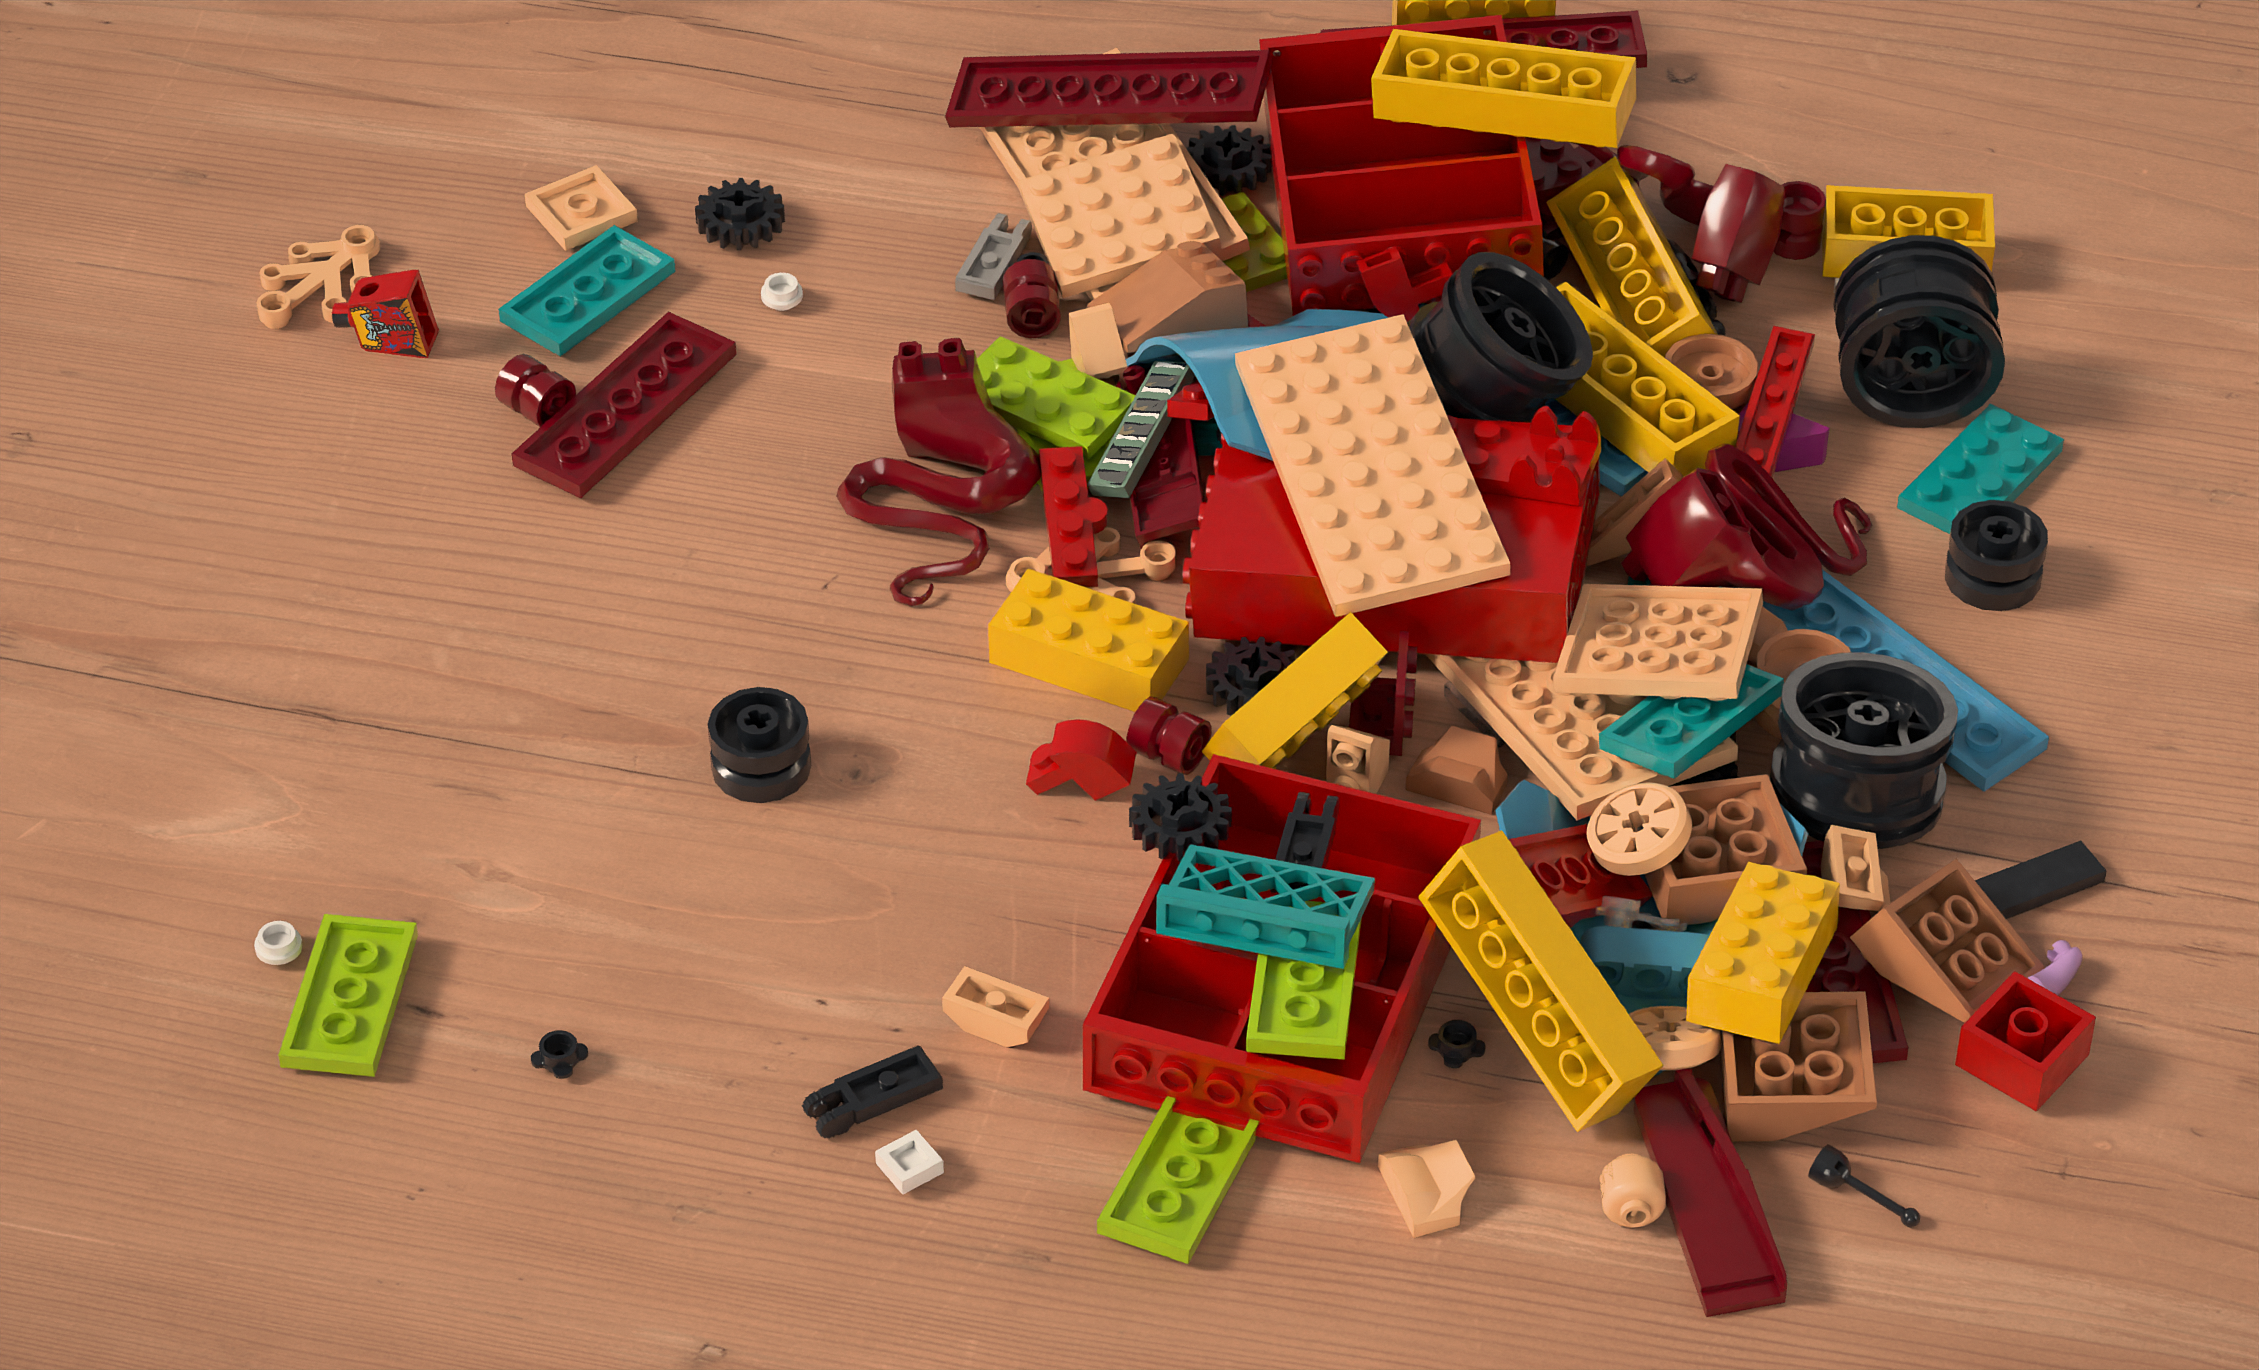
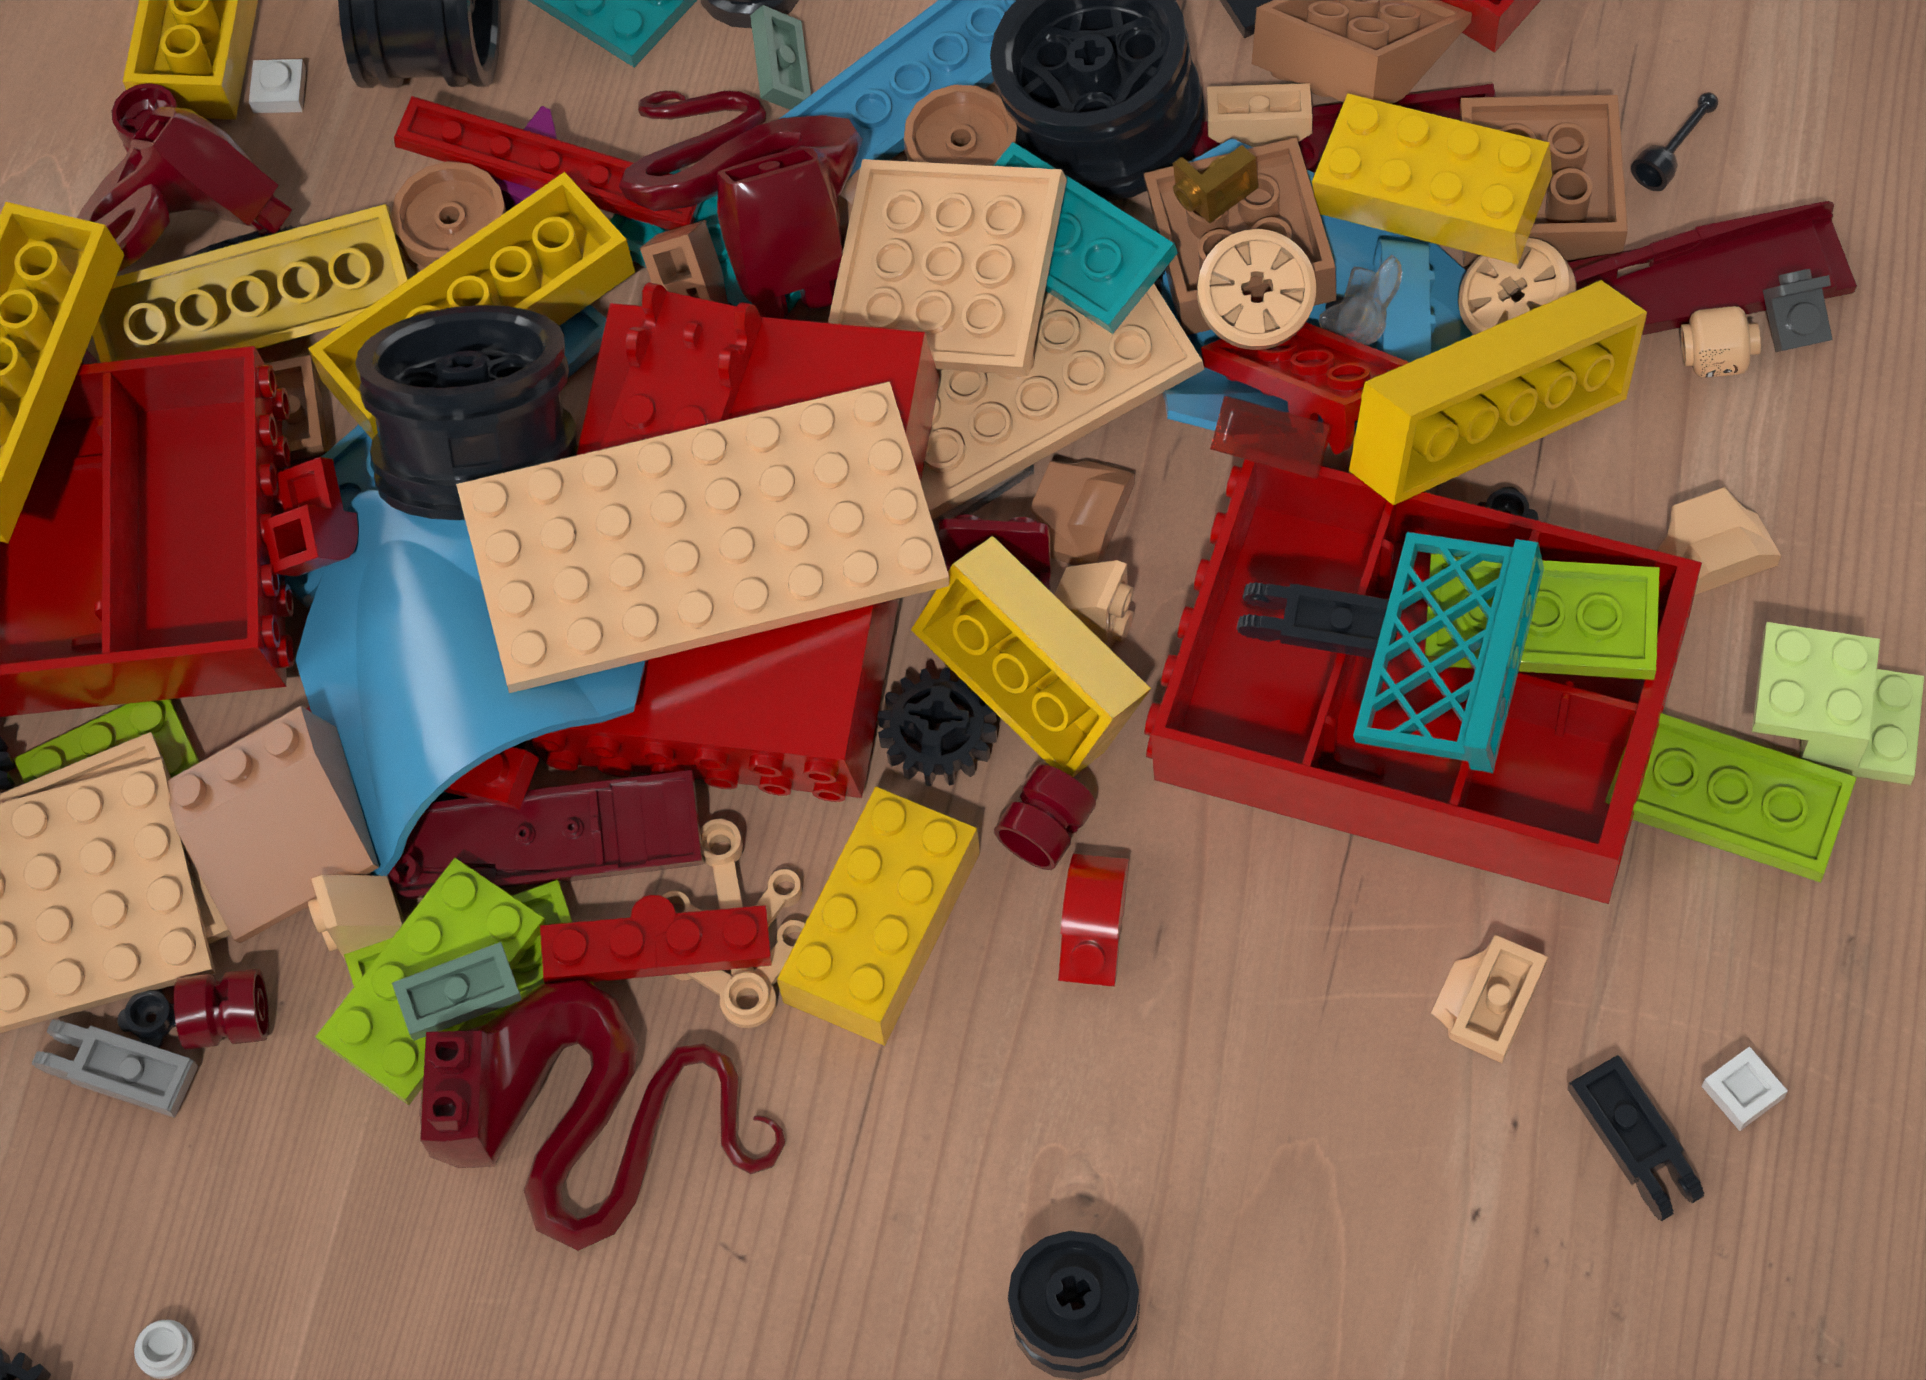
camera: 85 degrees left, 20 degrees up
(1021, 390) = (457, 991): none -> sand green plate
(1139, 431) = (521, 854): tile -> none
(1179, 815) = (1310, 769): black gear -> none
(1256, 1238) = (1838, 702): none -> yellowish green bracket
(1482, 813) = (1271, 437): none -> clear red plate
(1669, 1251) = (1798, 310): none -> dark grey bracket
(1741, 802) = (1219, 187): none -> pearl gold bracket
(1902, 582) = (780, 57): none -> sand green plate

